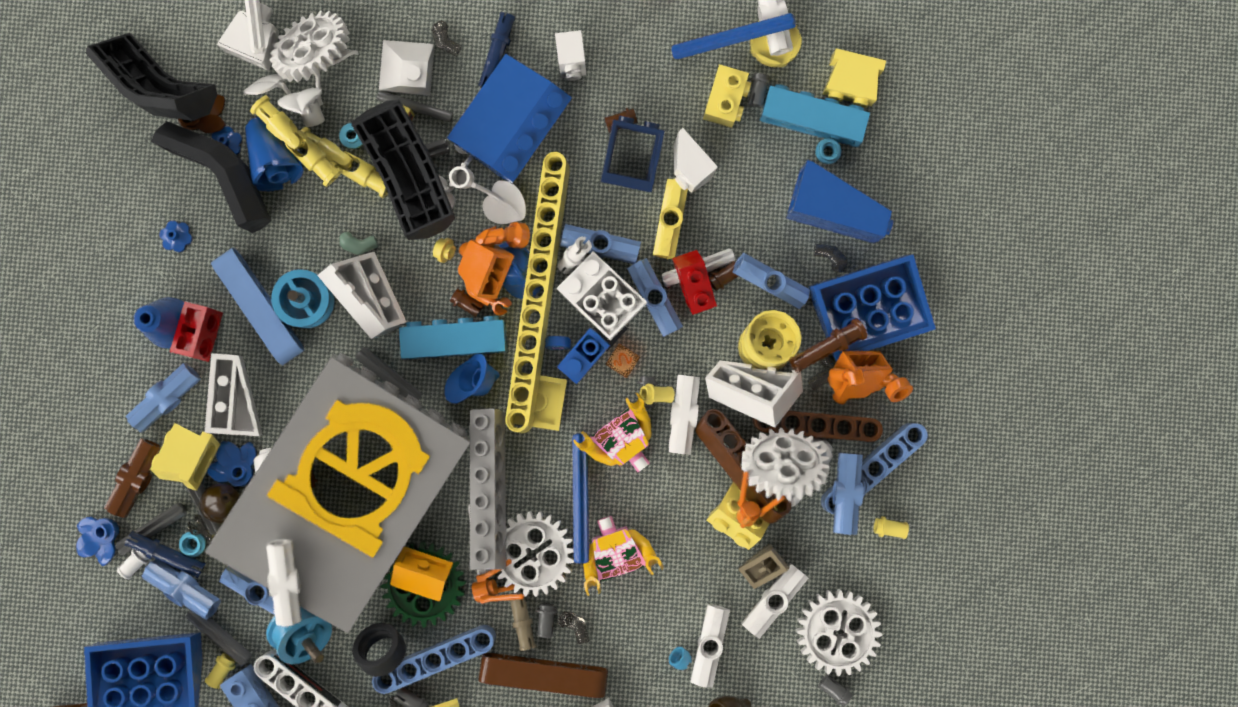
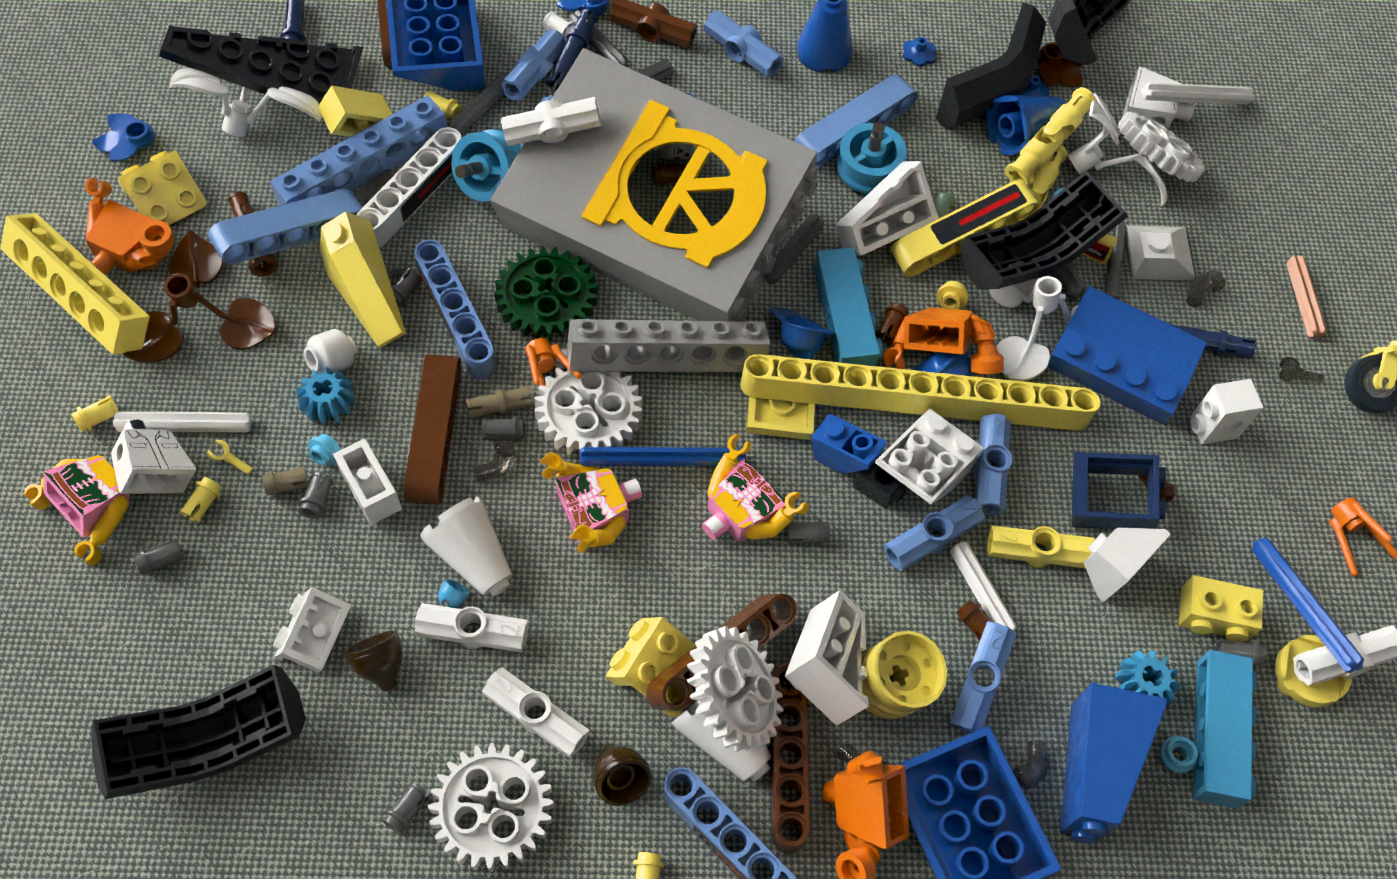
camera: 85 degrees right, 25 degrees down
(185, 456) = (681, 58): light yellow hips -> none
(196, 331) = (821, 58): red brick -> none
(230, 398) = (756, 92): white wedge -> none
(383, 230) = (945, 235): none -> light yellow beam
(390, 660) = (470, 259): black tyre -> none
(420, 573) = (561, 278): light orange panel -> none
(557, 343) = (859, 417): blue tile -> none
(574, 255) = (979, 427): white pin -> none
(622, 360) = (845, 503): clear orange tile -> none
(649, 646) = (470, 546): none -> white cone
(656, 394) = (808, 537): light yellow pin -> none
(684, 414) = (784, 576): white piece -> none
(694, 282) = (965, 574): red brick -> none
(750, 511) = (663, 651): orange plant -> none
(763, 566) = (584, 696): dark tan slope -> none
(777, 152) = (1148, 676): none -> dark azure gear
(822, 544) = (621, 775): none -> dark brown helmet
(837, 341) = (918, 758): reddish brown pin -> none
(847, 493) = (698, 792): medium blue piece -> none
(854, 78) = (1293, 781): light yellow hips -> none

